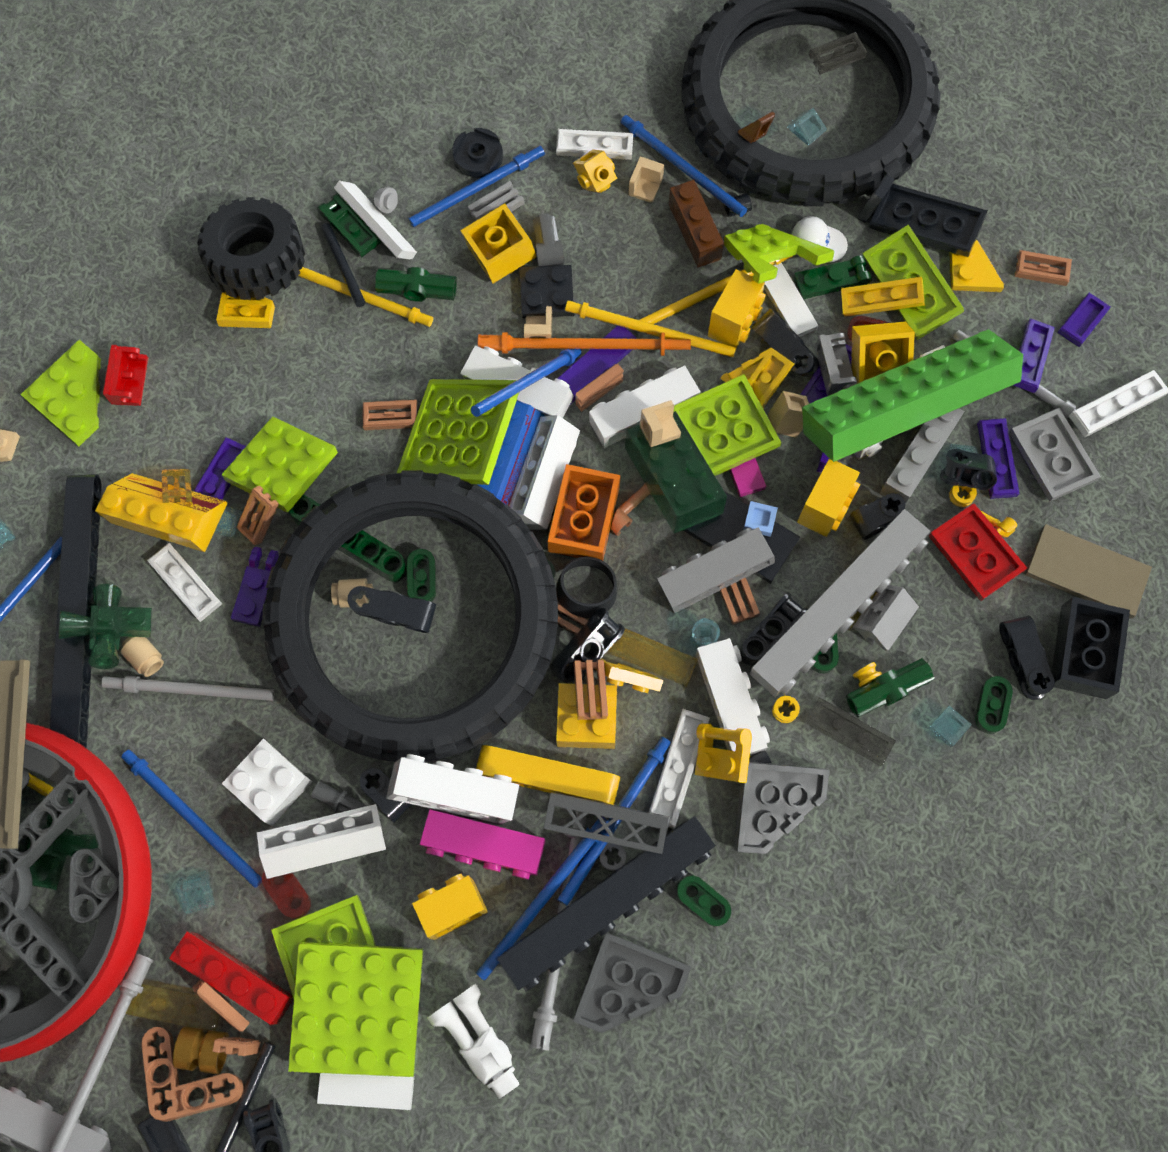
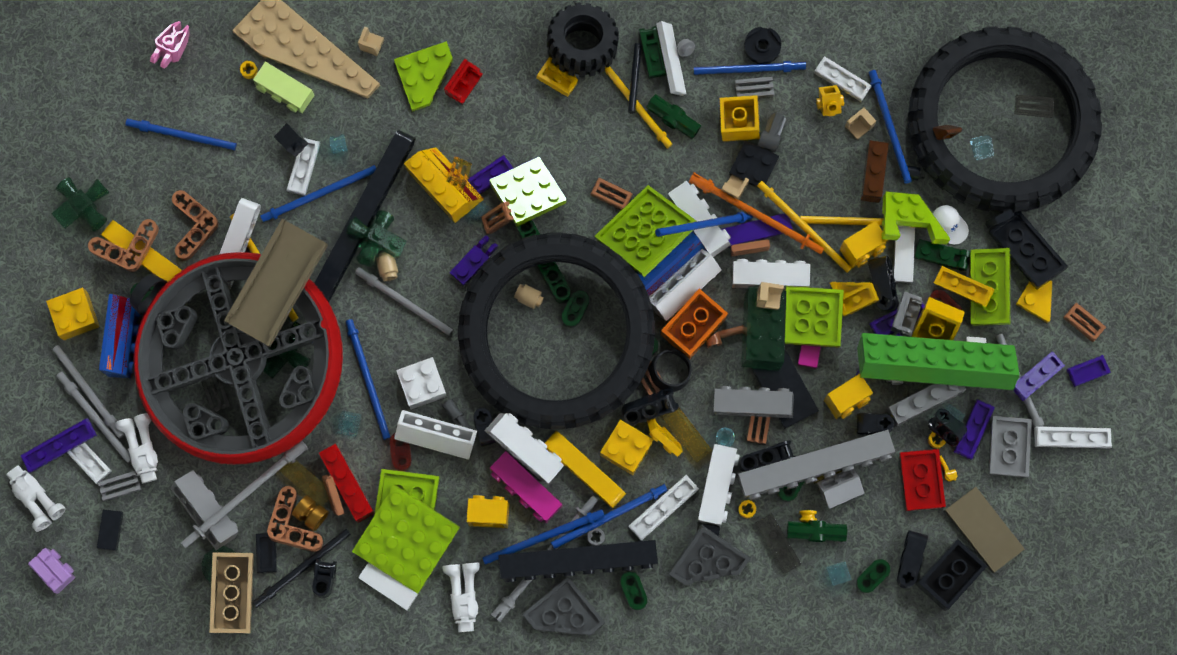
camera: 30 degrees right, 5 degrees up
(184, 582) = (433, 234): white tile -> none
(236, 1045) = (331, 521): nougat tile -> none
(393, 608) = (547, 324): black piece -> none
(589, 666) = (642, 419): nougat tile -> none
(611, 811) = (607, 509): dark grey fence -> none
(719, 762) = (688, 518): yellow plate -> none
(761, 516) = (799, 386): light blue plate -> none
(787, 414) = (856, 327): tan panel -> none

